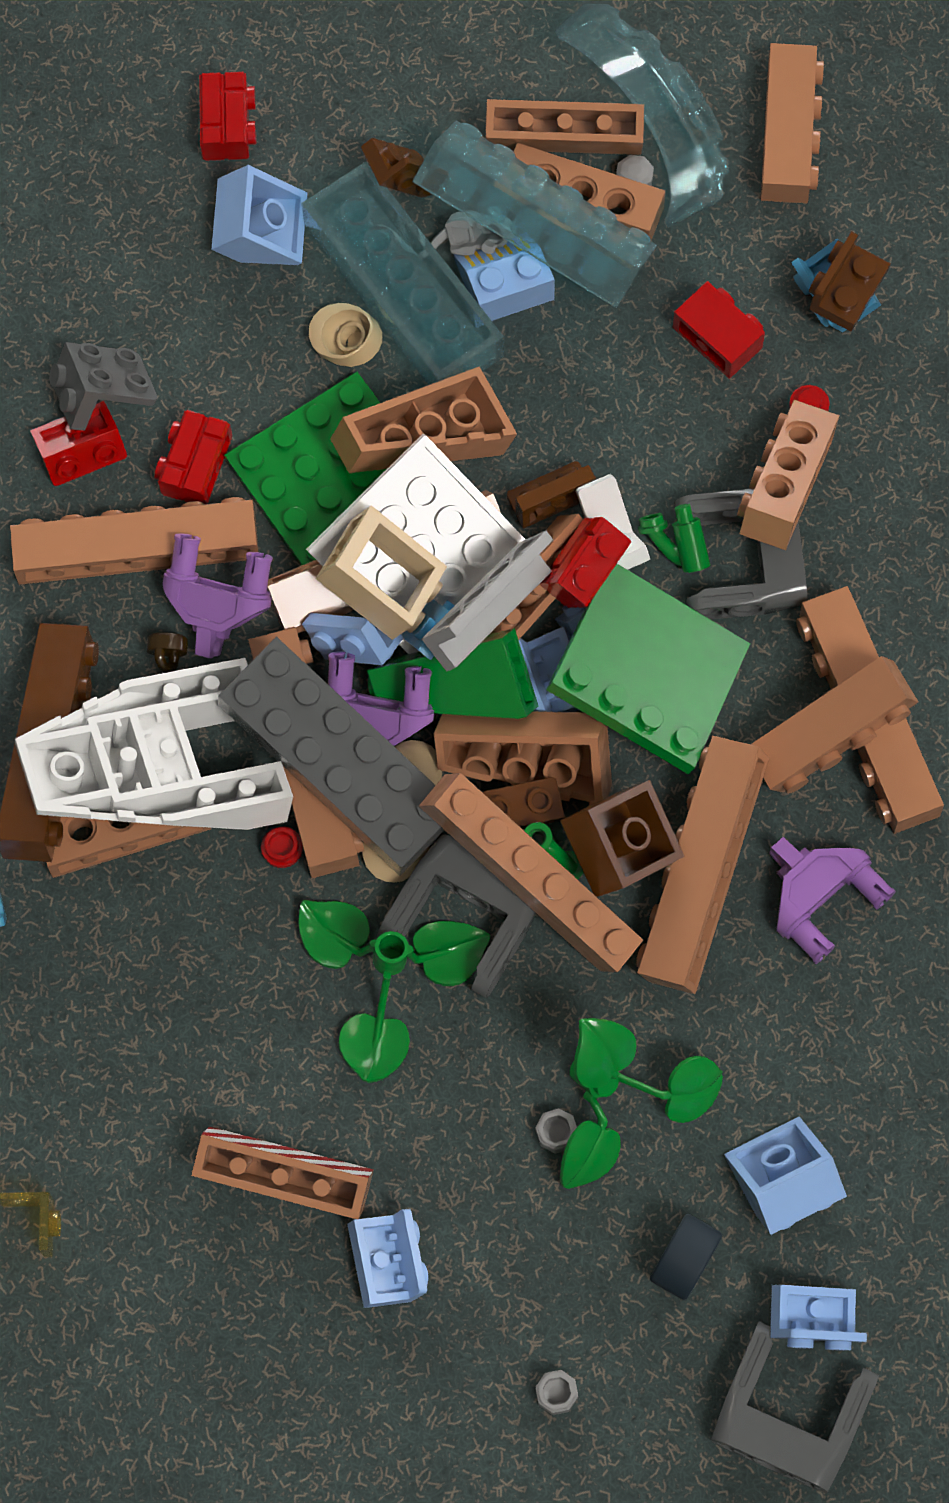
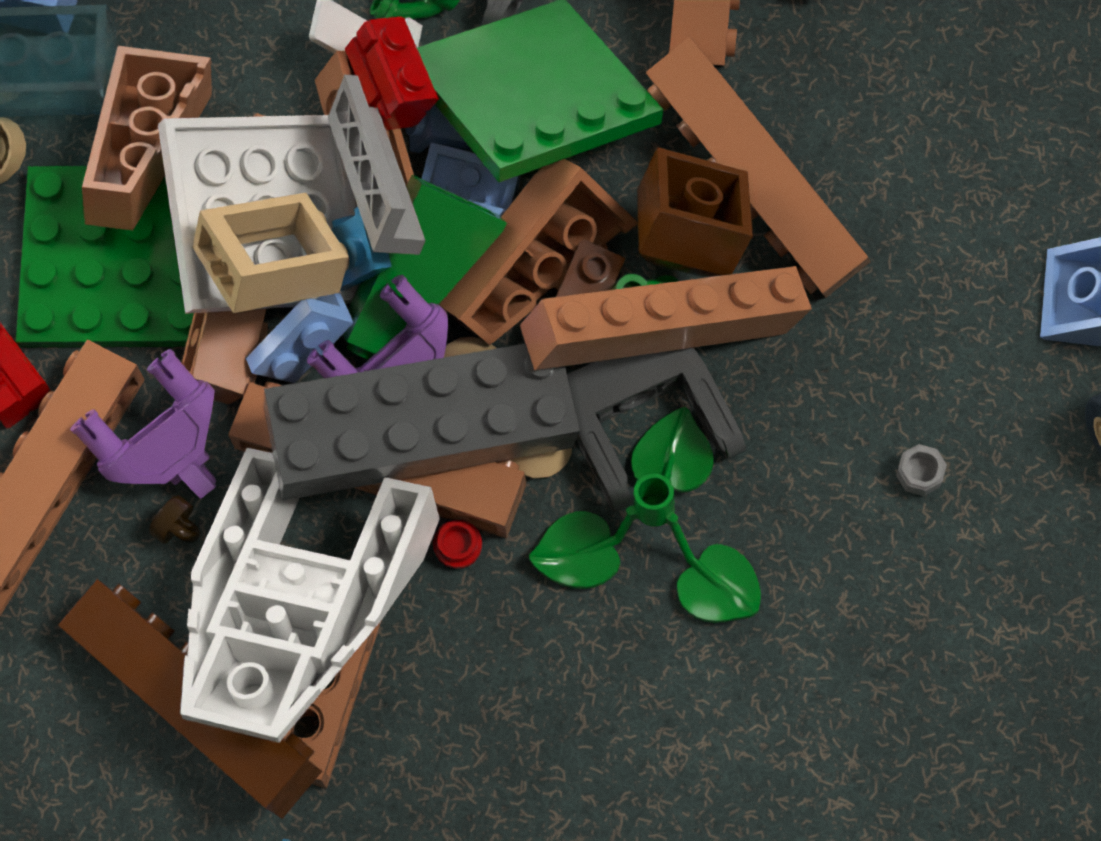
camera: 55 degrees left, 0 degrees up
(282, 1172) = (798, 751): nougat brick -> none
(388, 1259) = (949, 706): light blue bracket -> none
(549, 493) = (287, 69): reddish brown bracket -> none
(600, 1055) = (905, 355): green plant -> none
(811, 881) = (834, 96): medium lavender connector -> none

